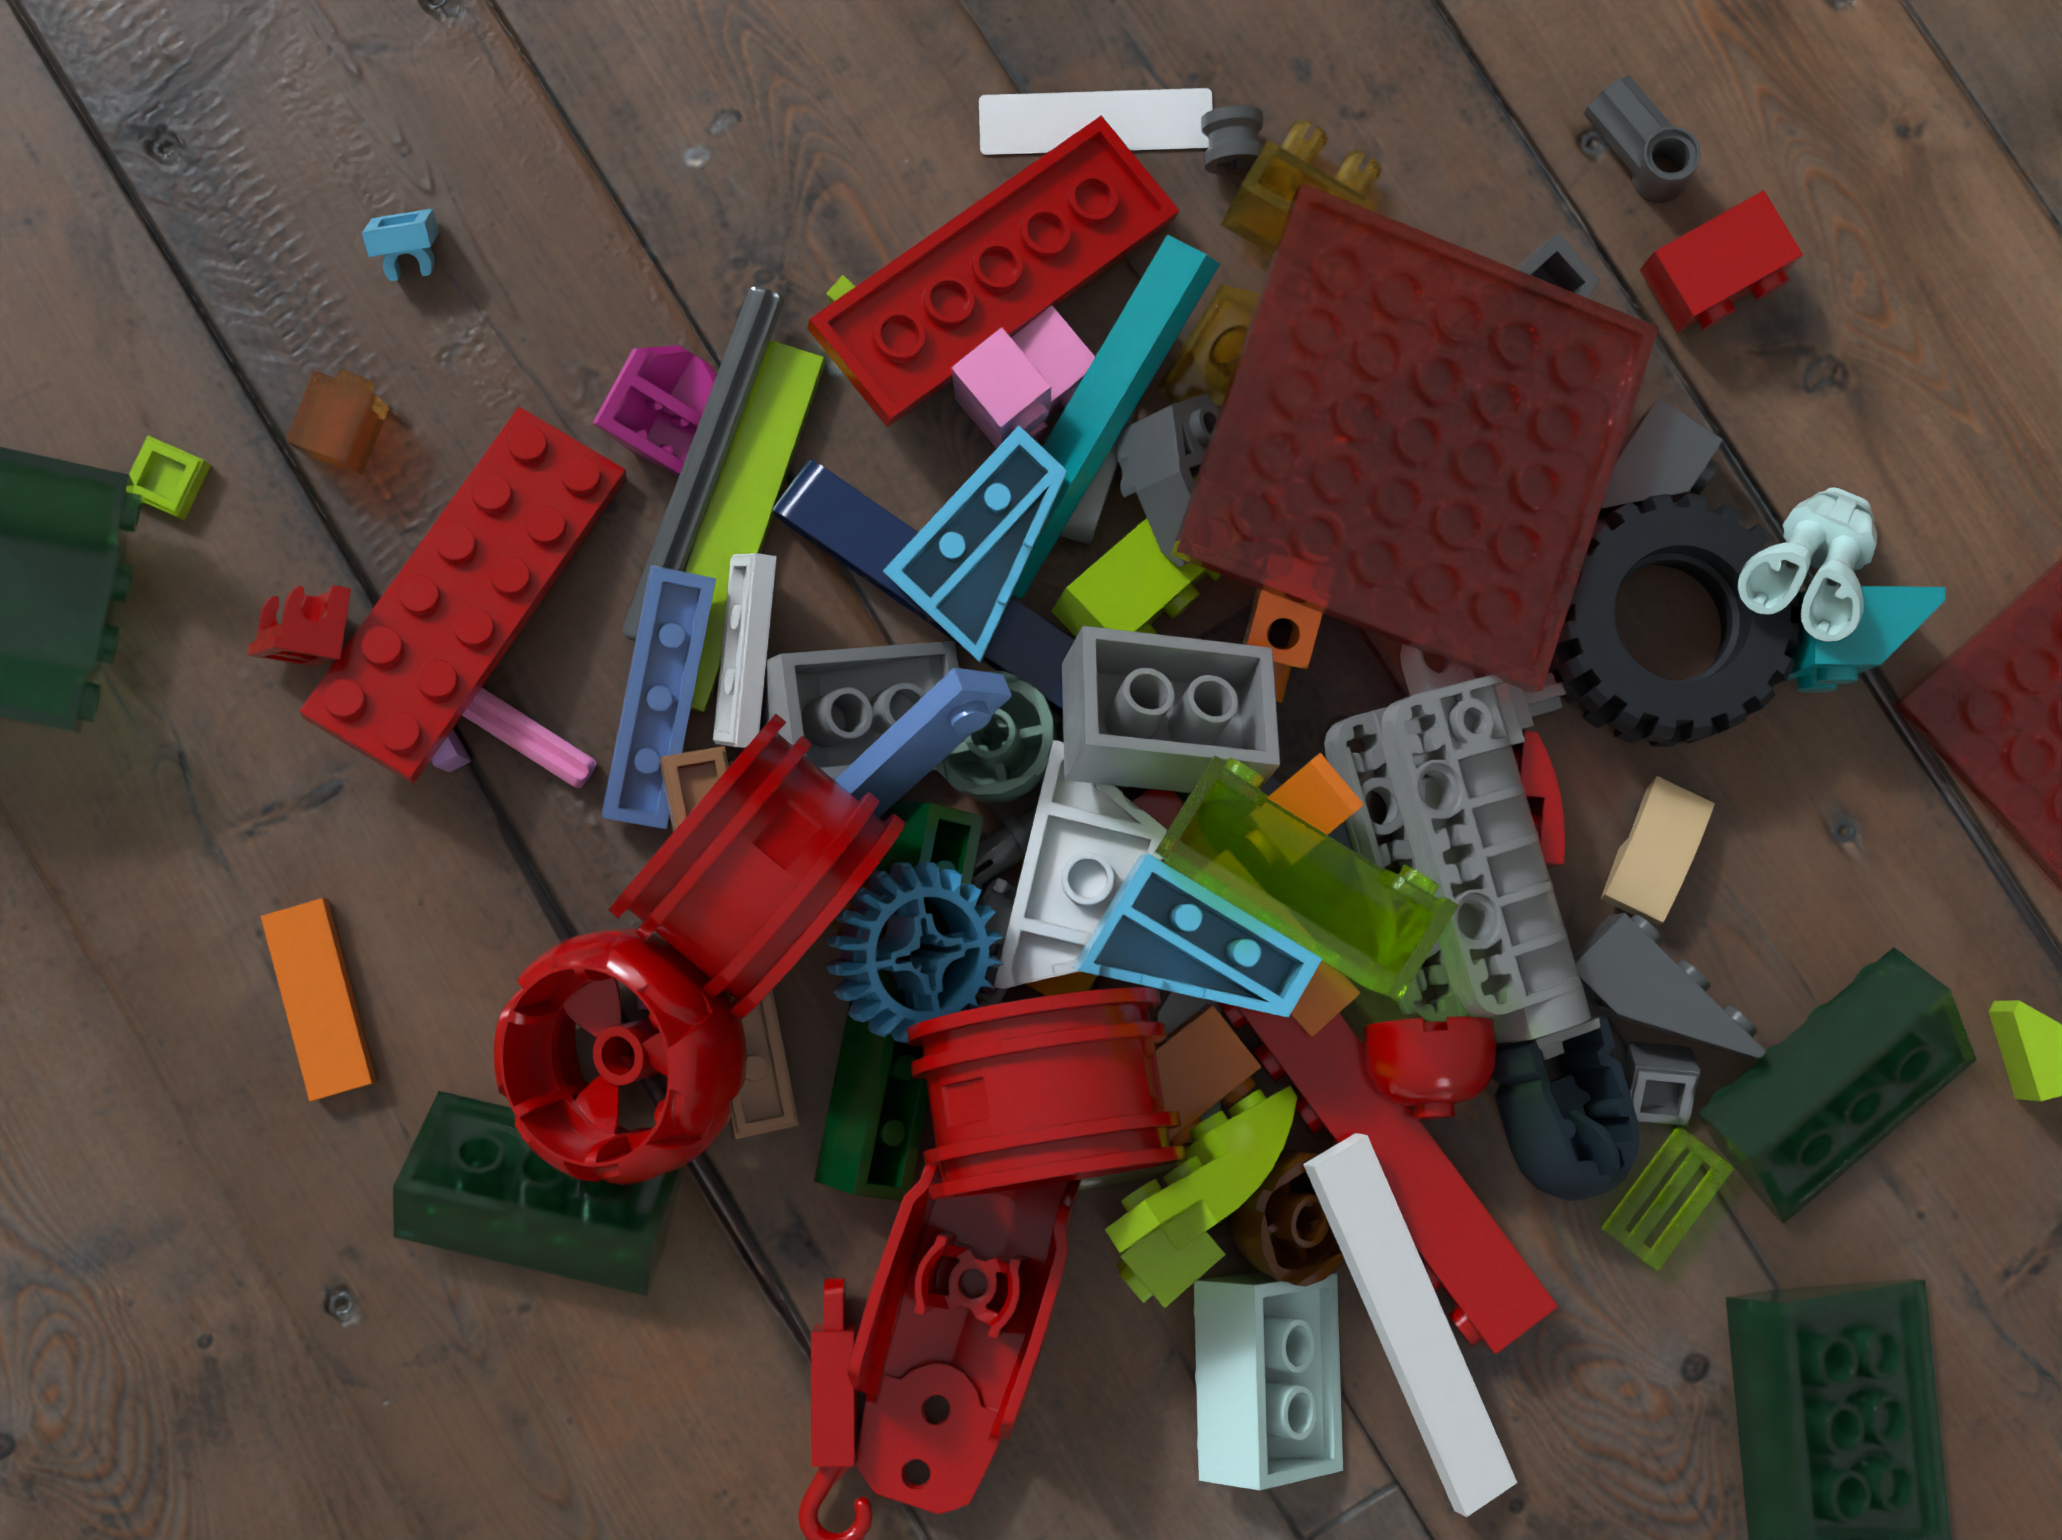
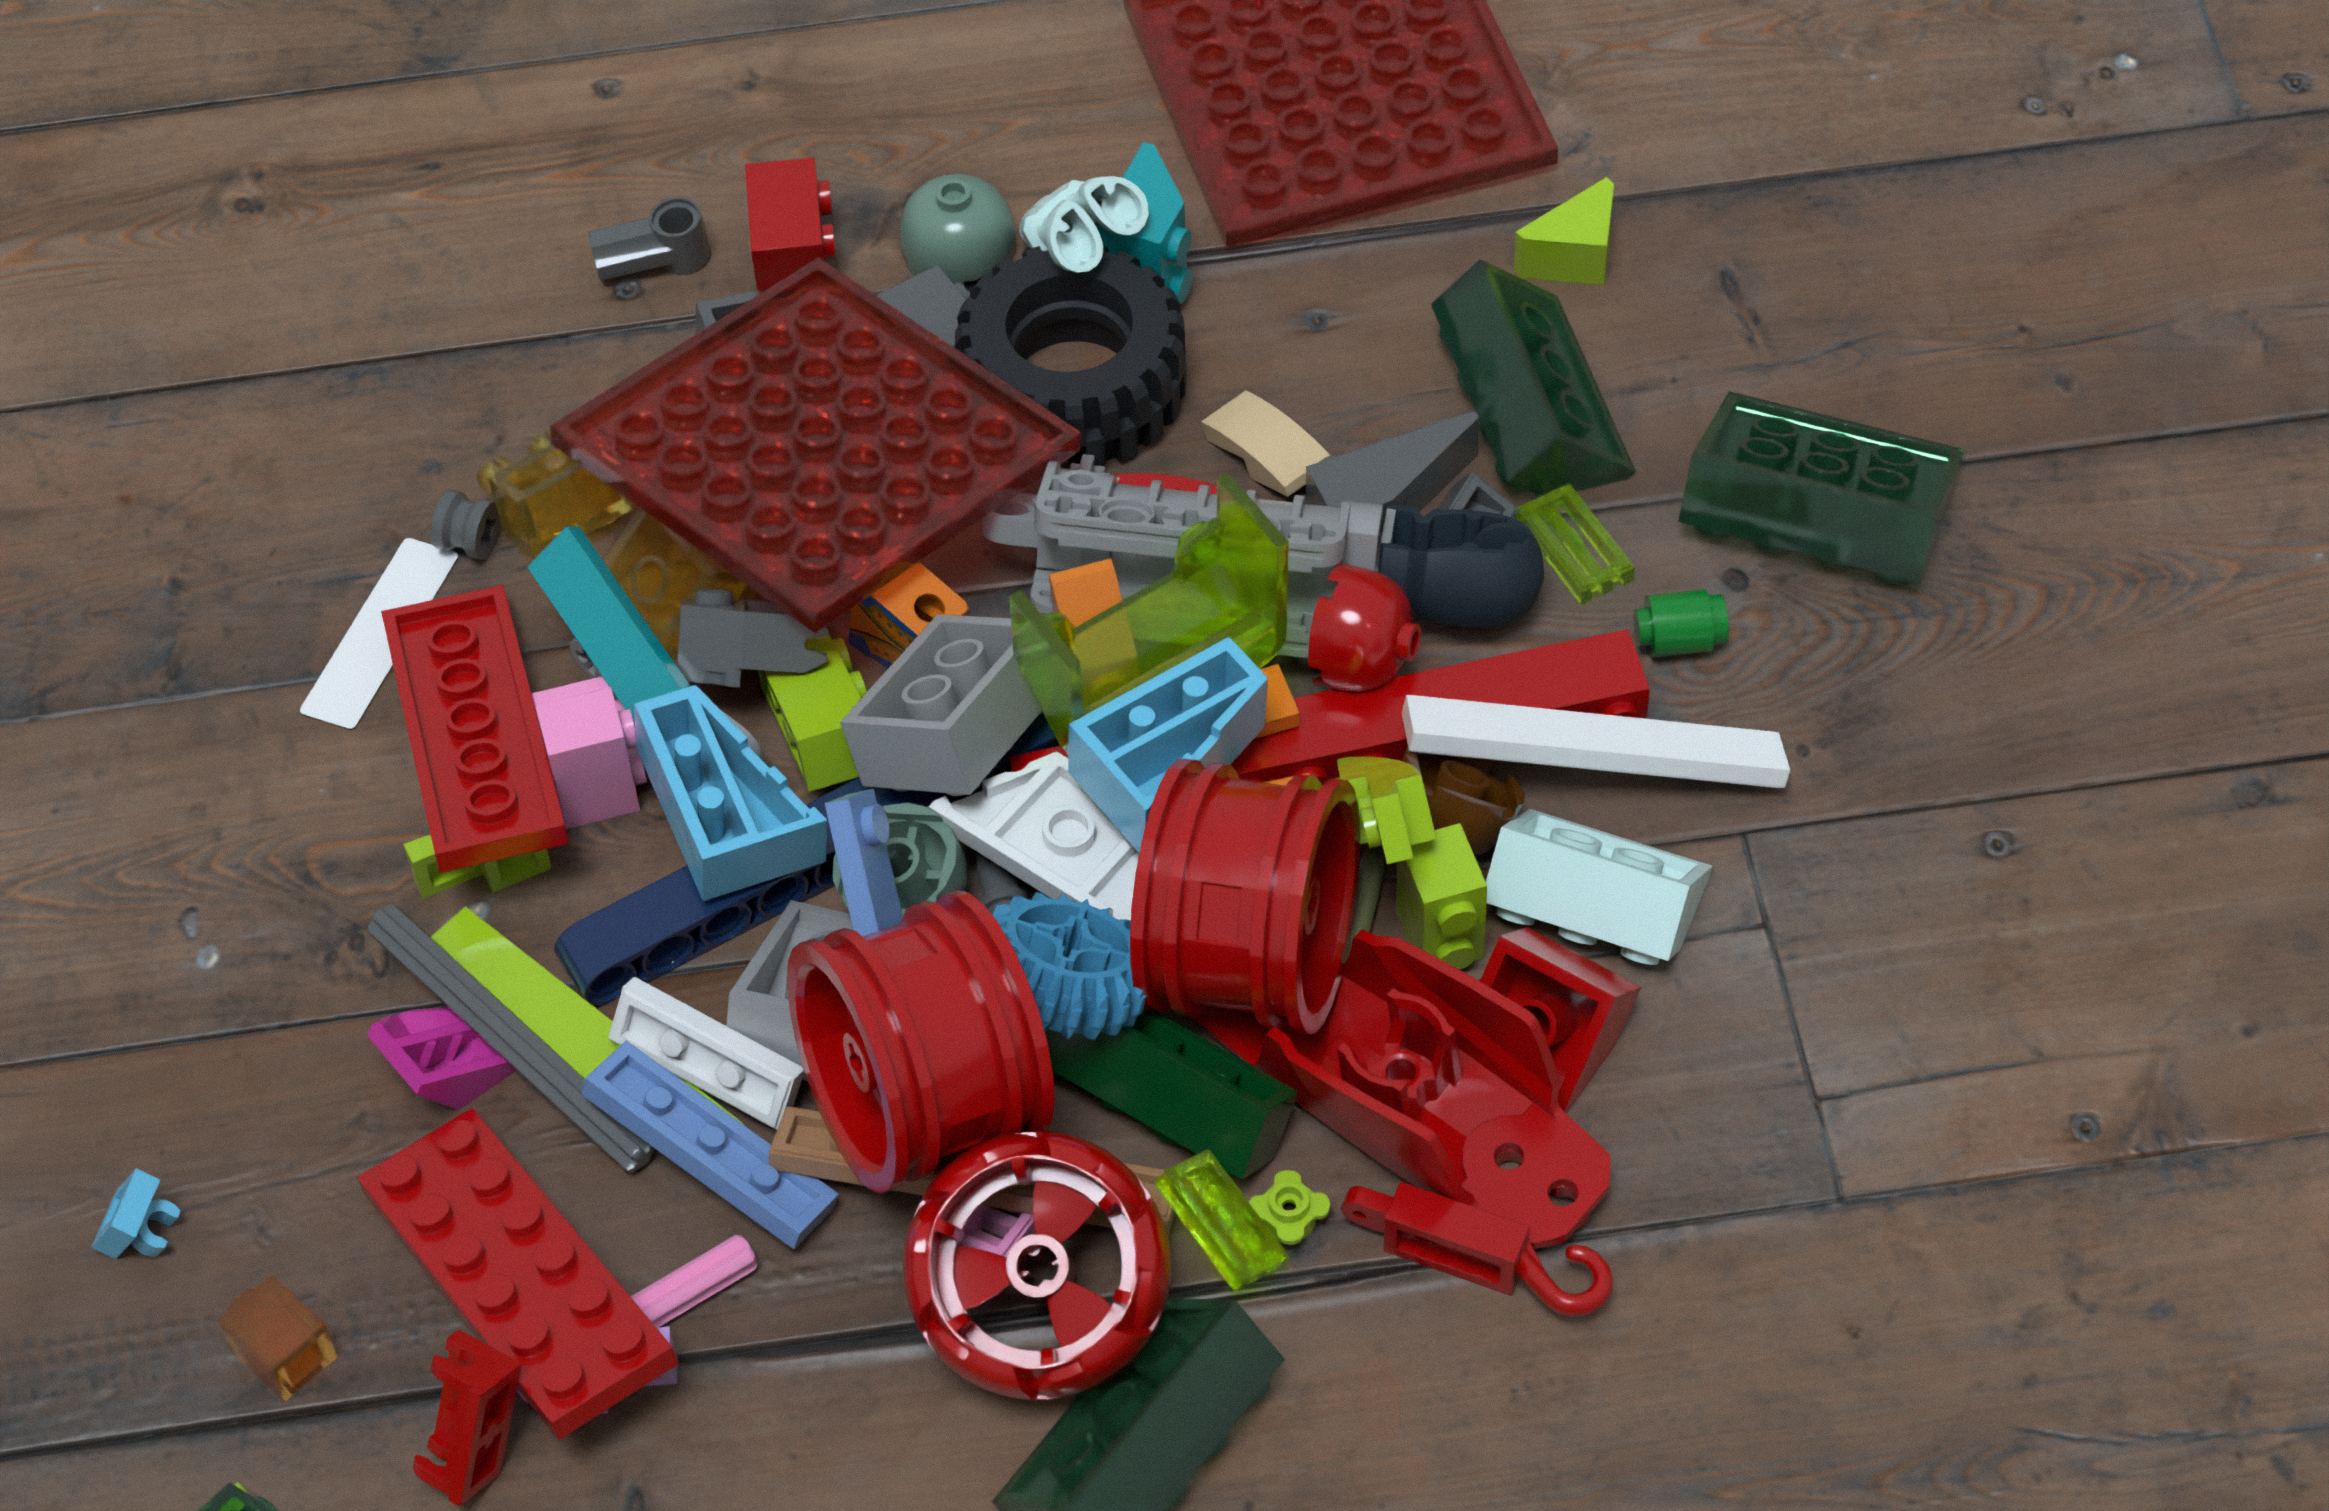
camera: 65 degrees left, 30 degrees down
(766, 1131) = (1221, 1219): none -> clear neon green tile
(820, 1246) = (1292, 1225): none -> lime plate
(1102, 1388) = (1571, 997): none -> red slope
(1604, 1345) = (1681, 623): none -> green brick
(1791, 432) = (958, 226): none -> sand green cylinder

